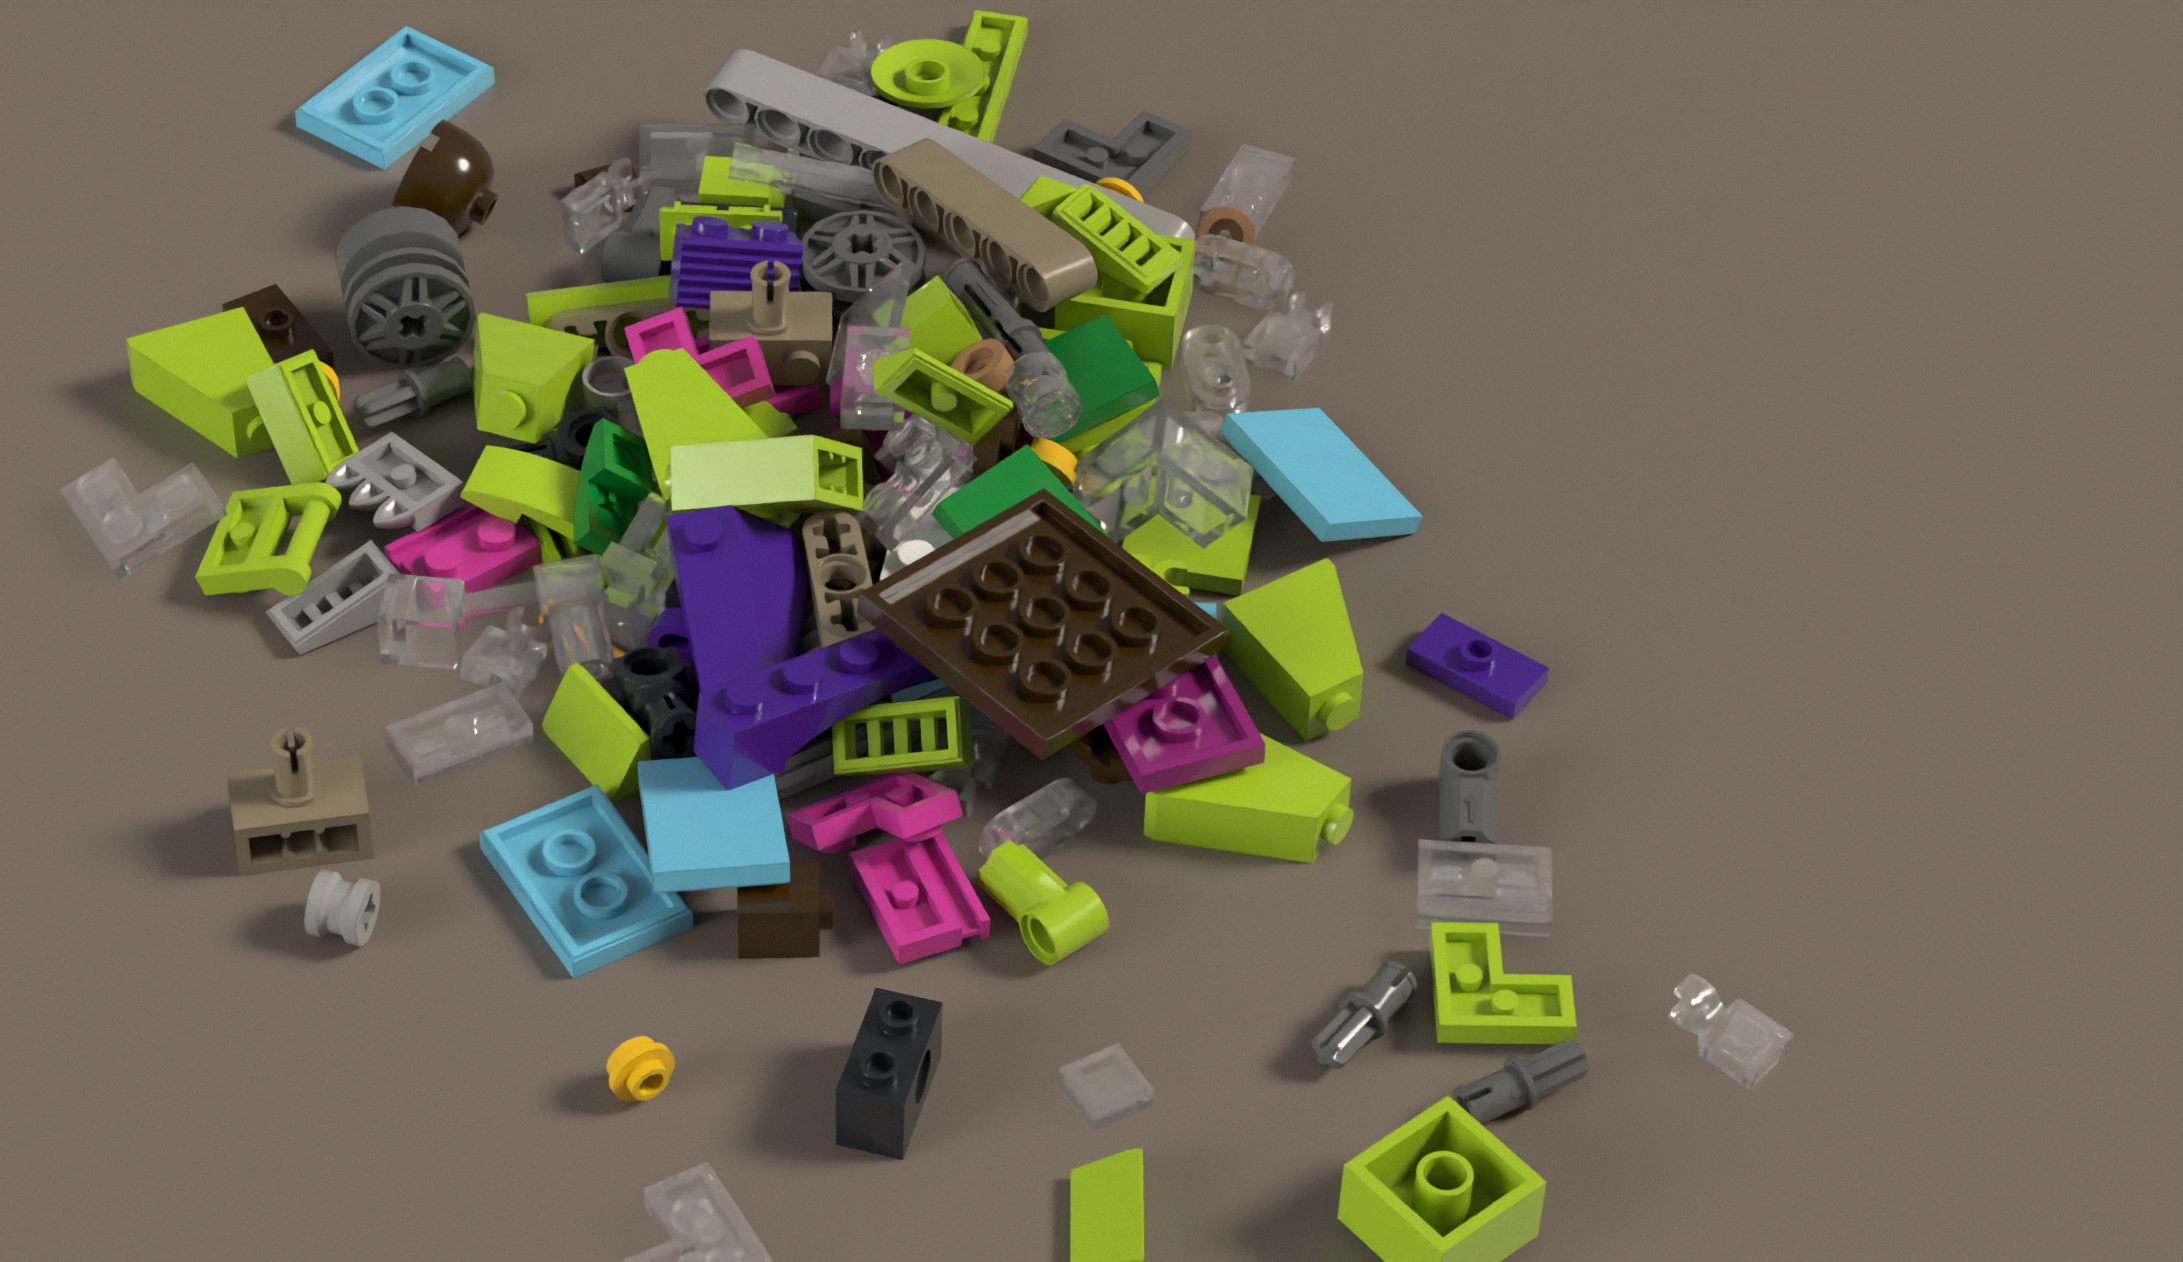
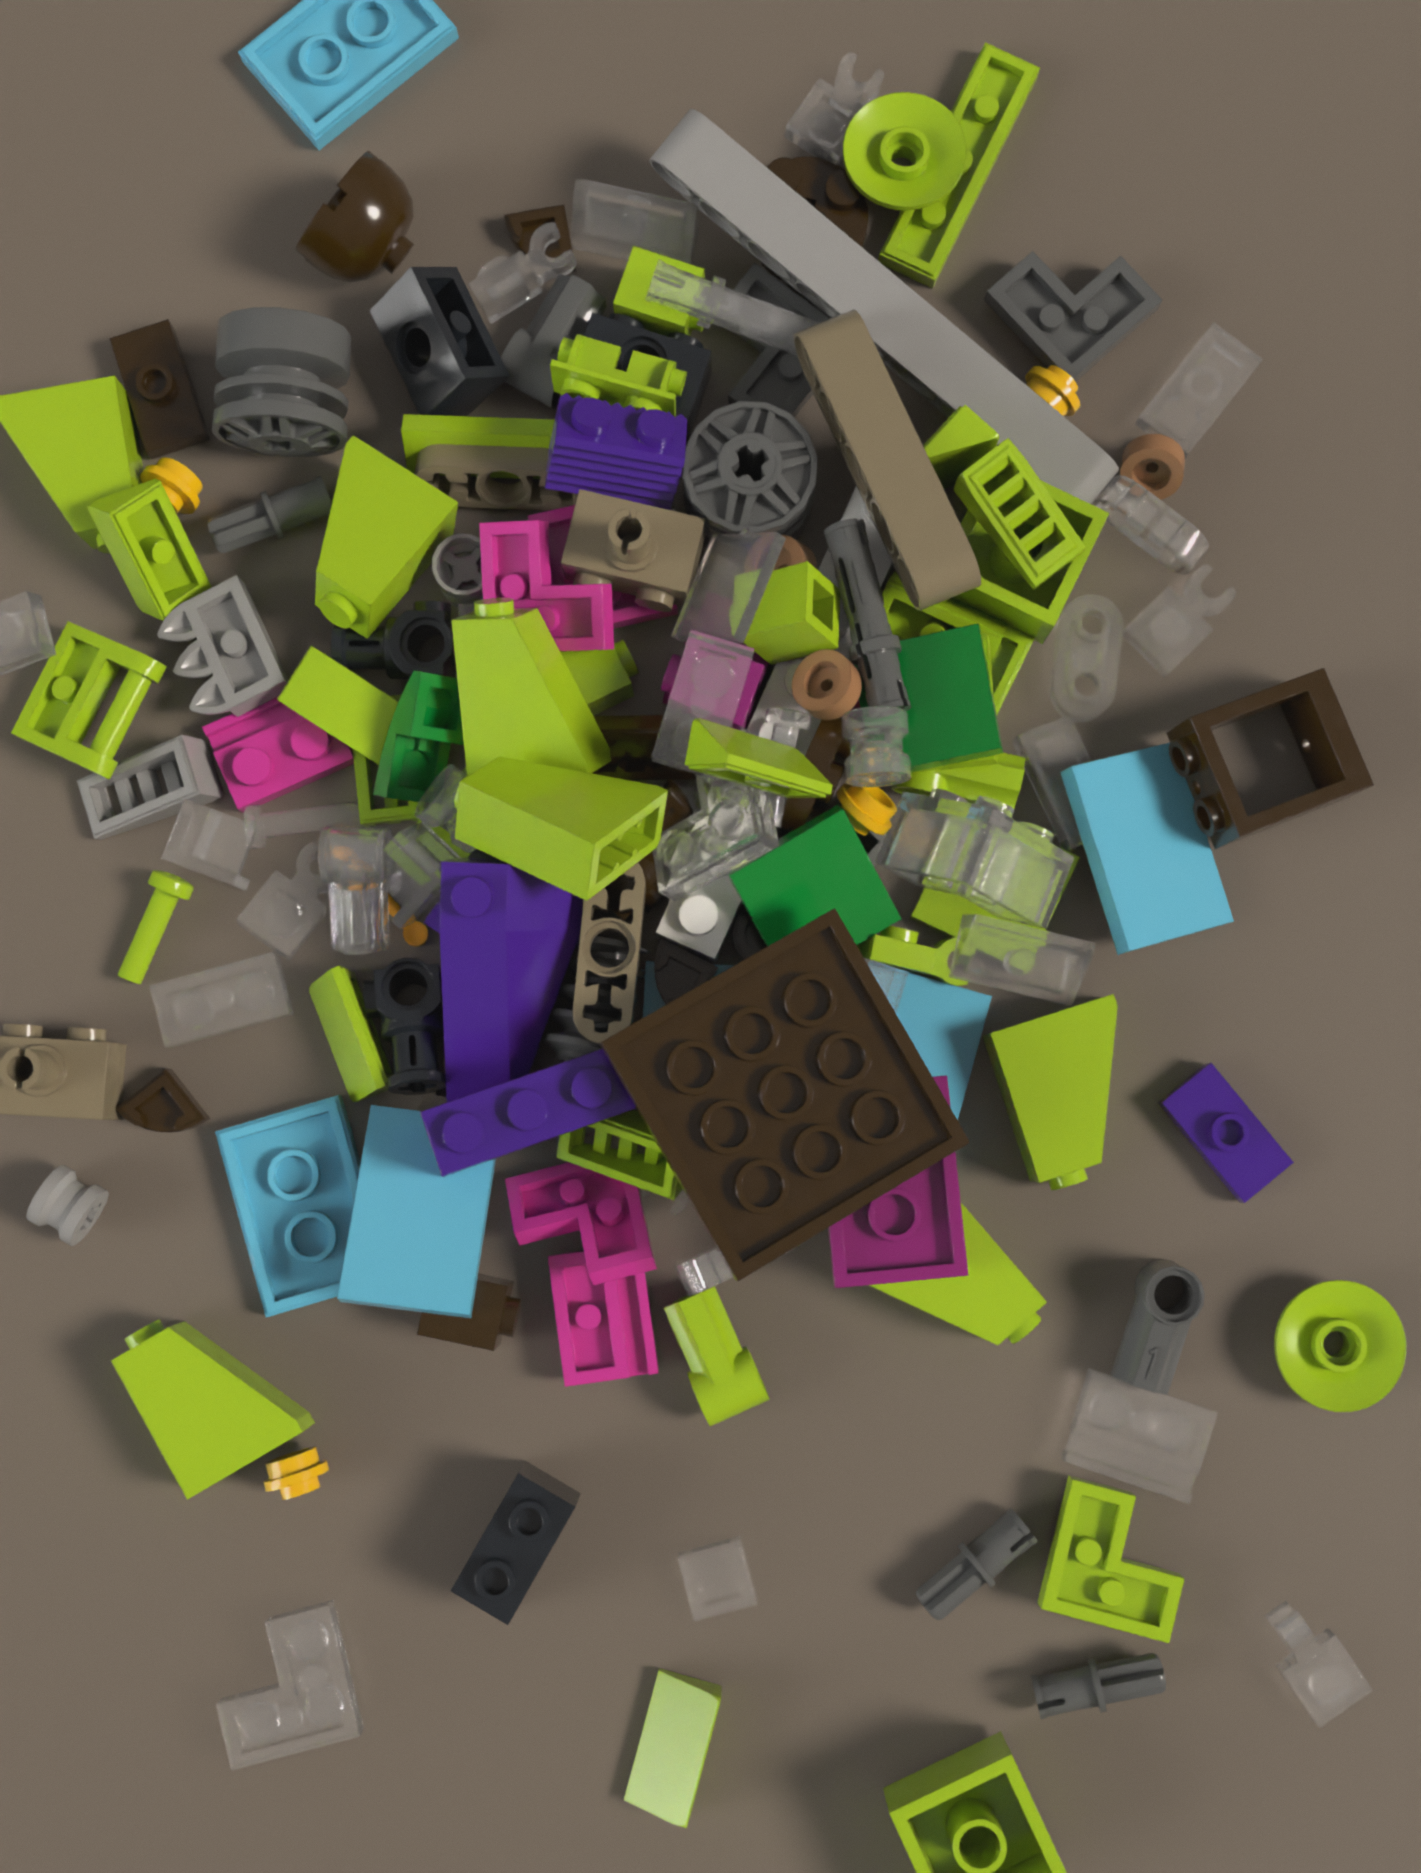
camera: 20 degrees right, 40 degrees up
(382, 666) = (153, 923): none -> lime piece
(418, 832) = (163, 1106): none -> dark brown tile
(530, 1032) = (204, 1404): none -> lime slope
(539, 244) = (439, 341): none -> black brick
(1228, 551) = (1020, 959): none -> clear slope
(1459, 391) = (1320, 735): none -> dark brown window
(1647, 781) = (1370, 1353): none -> lime dish

